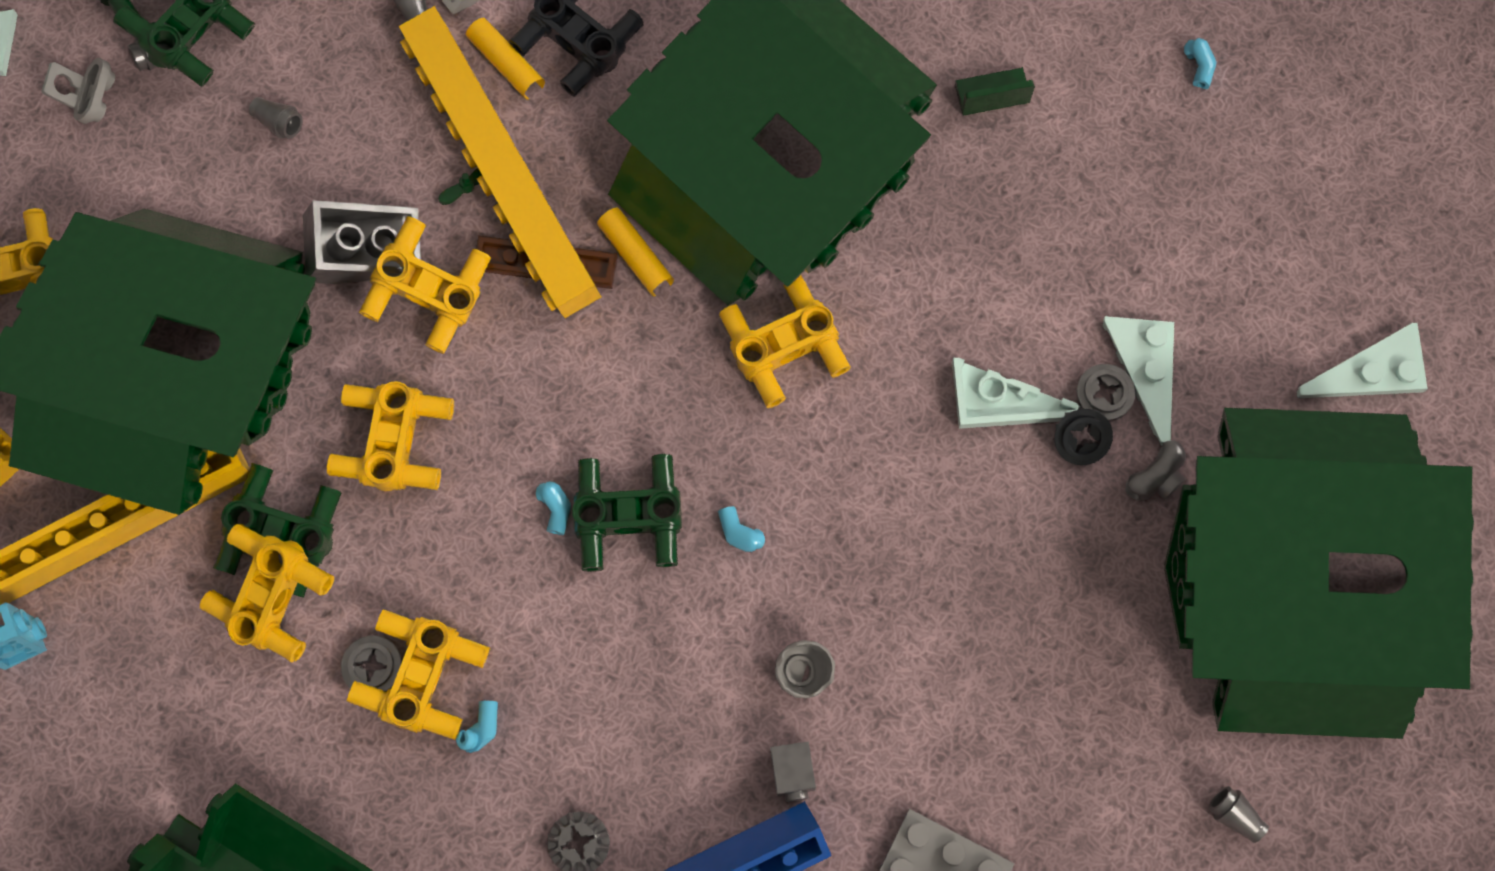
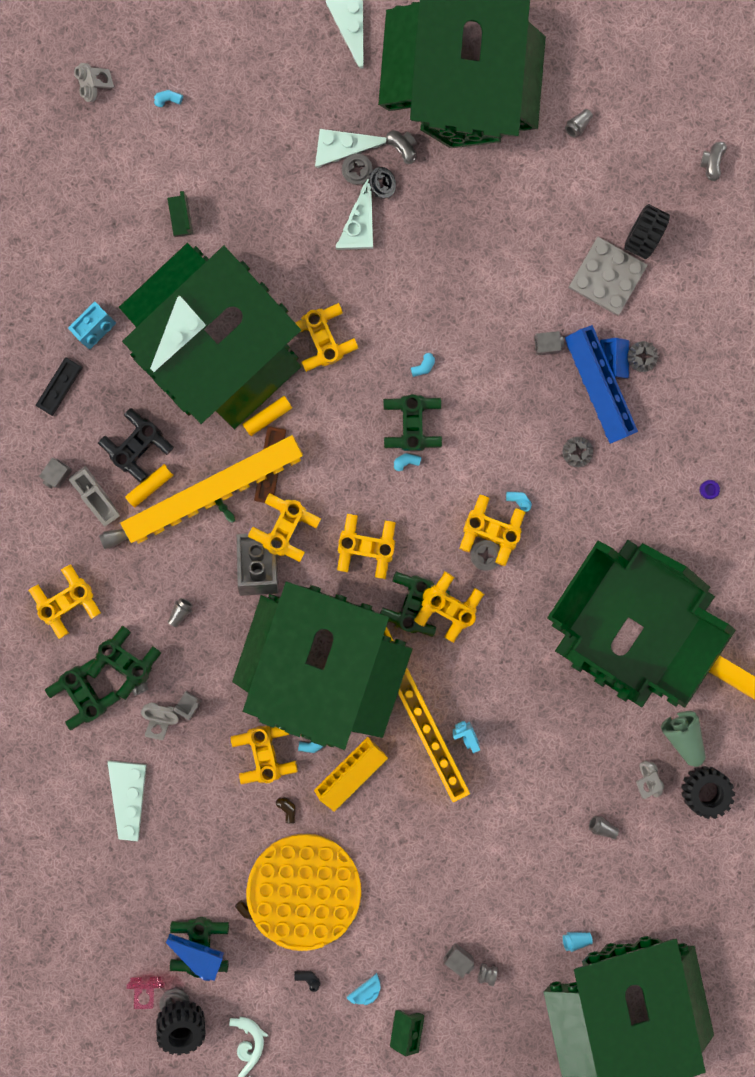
camera: 90 degrees left, 15 degrees up
(103, 135) = (187, 705): none -> flat silver panel
(773, 68) = (180, 329): none -> light aqua wing
(792, 665) = (498, 326): light grey hair -> none

